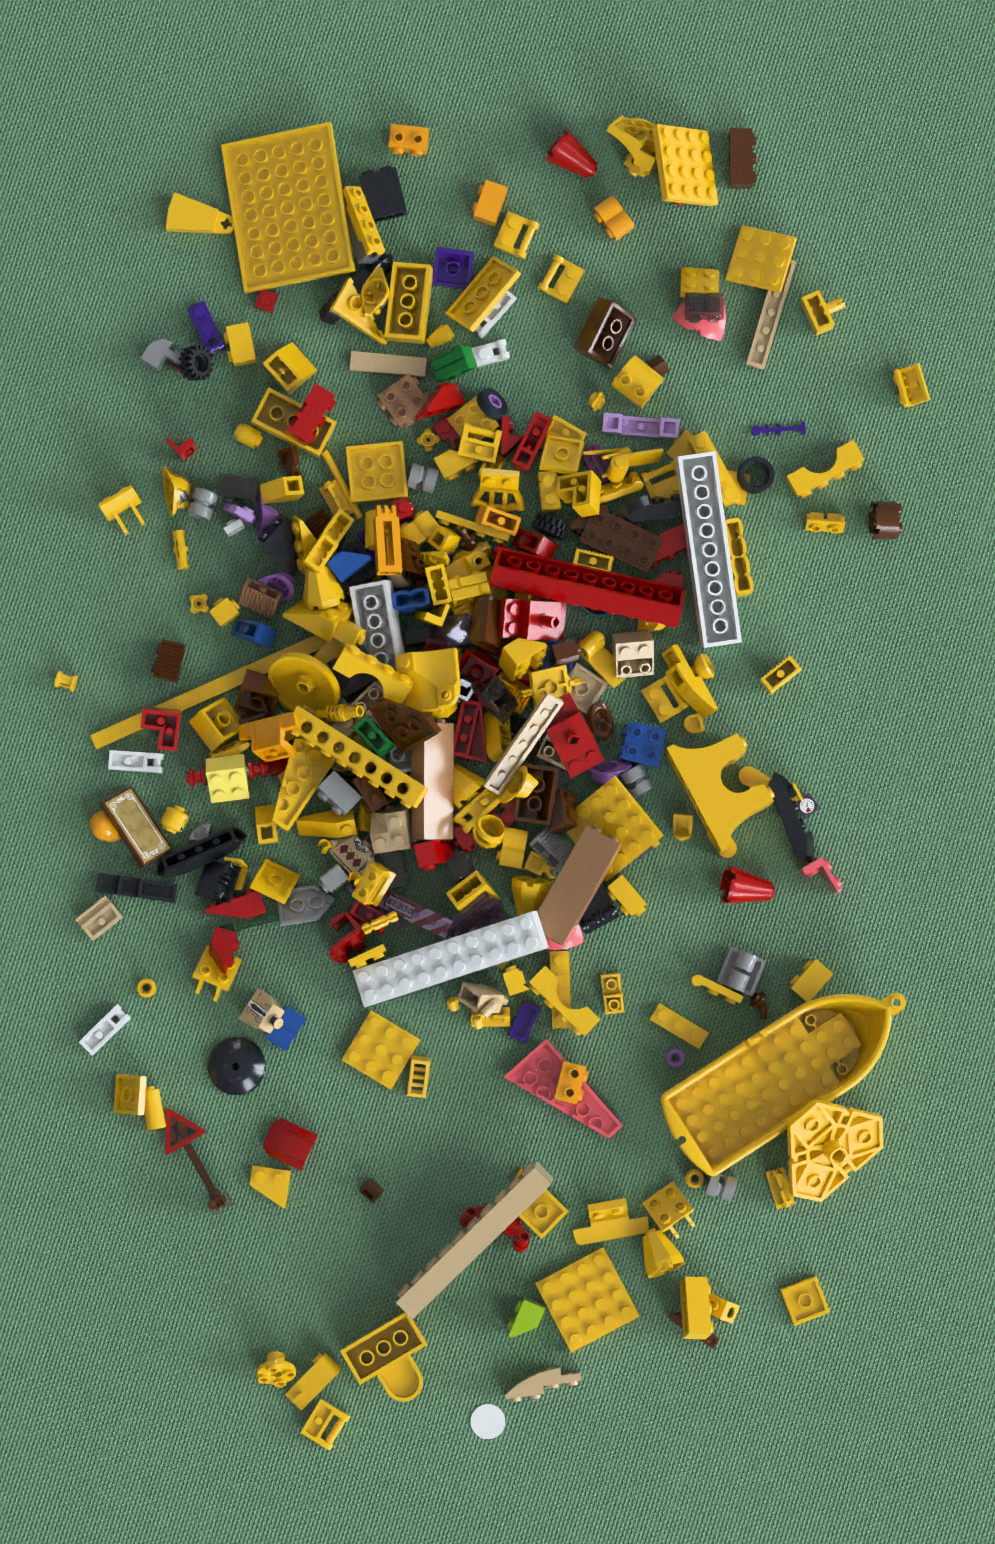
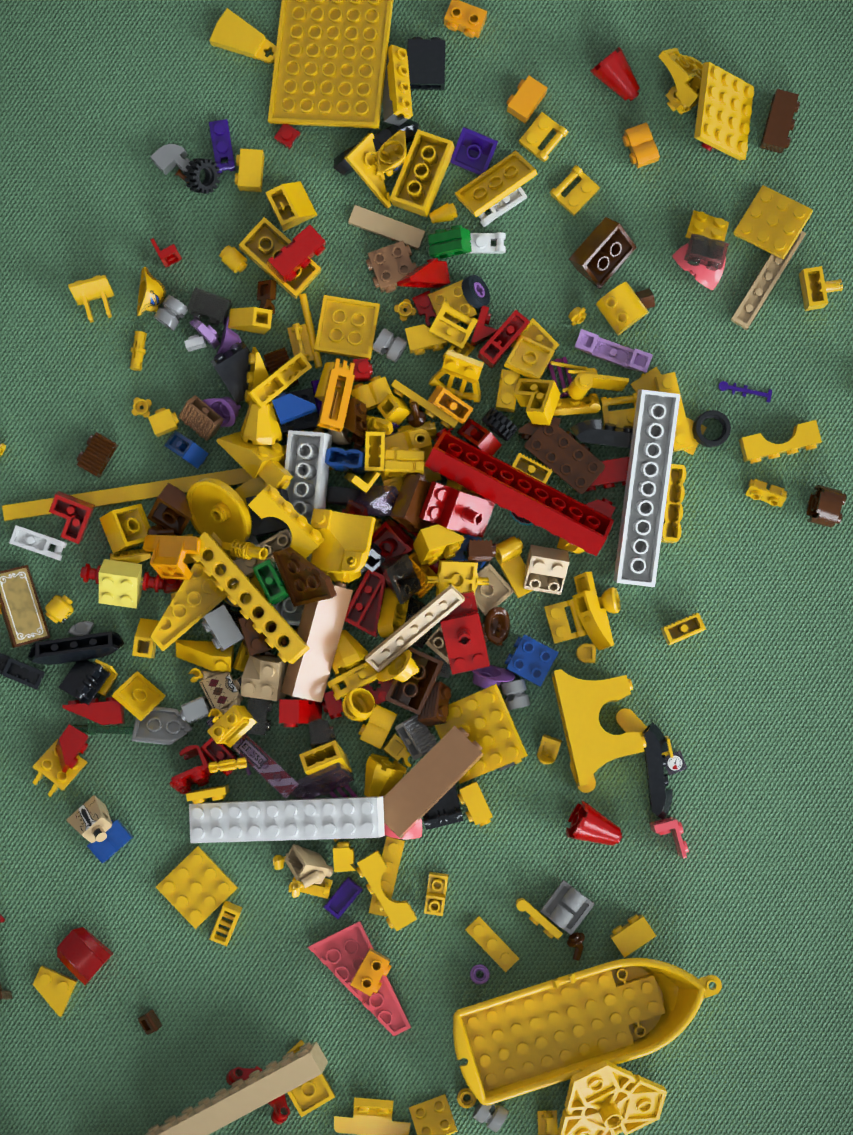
camera: 15 degrees right, 0 degrees up
(251, 1064) = (66, 861): black dish -> none

